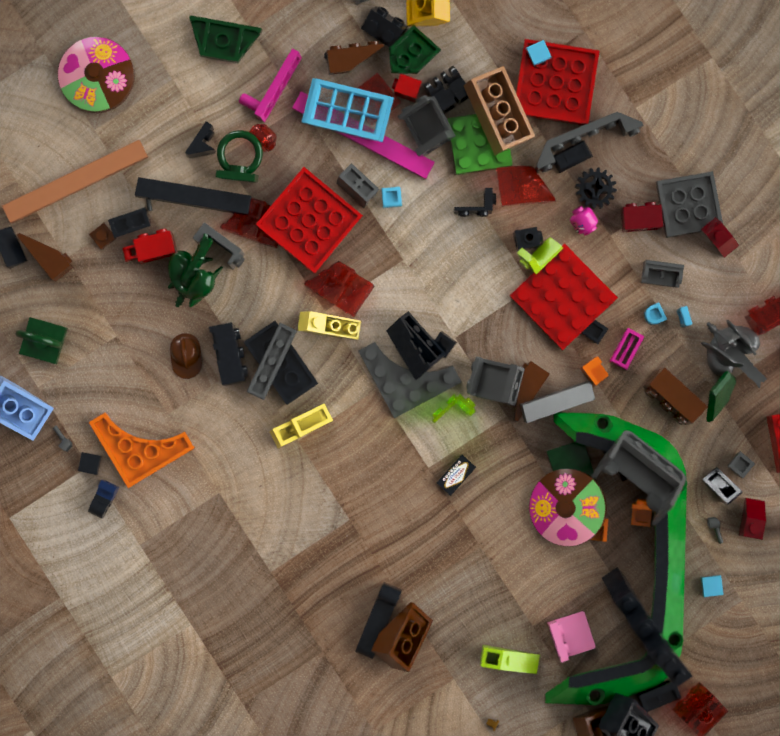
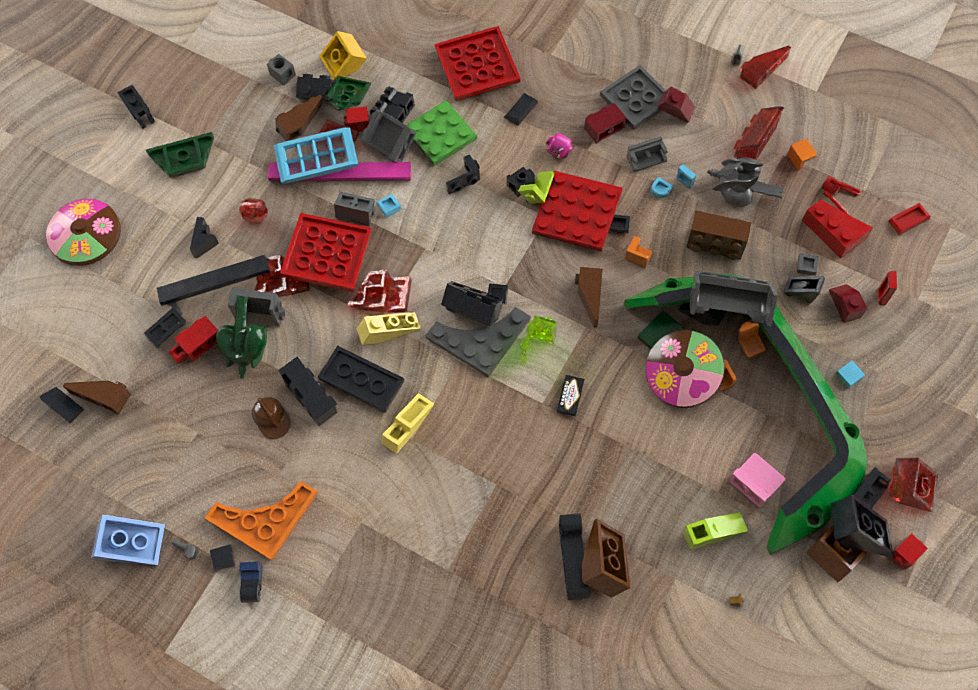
camera: 20 degrees left, 20 degrees down
(42, 340) = (126, 469): dark green tile -> none
(75, 181) = (99, 323): nougat tile -> none
(102, 236) = (146, 354): reddish brown plate -> none
(236, 172) = (244, 243): dark green tile -> none
(264, 108) = (246, 173): dark pink piece -> none
(271, 361) = (351, 379): dark grey tile -> none
(495, 381) = (560, 297): dark grey panel -> none
(499, 110) = (442, 94): medium nougat brick -> none
(522, 186) = (491, 144): clear red slope -> none
(538, 52) = (450, 46): medium azure tile -> none
(557, 401) = (622, 289): tile -> none
(603, 189) = (553, 118): black gear -> none
(626, 124) = (550, 64): dark grey slope -> none
(634, 334) = (654, 238): dark pink tile -> none
(645, 628) = (818, 423): black arch -> none
(714, 523) = (819, 321): dark grey hand -> none
(720, 395) = (754, 214): dark green tile -> none

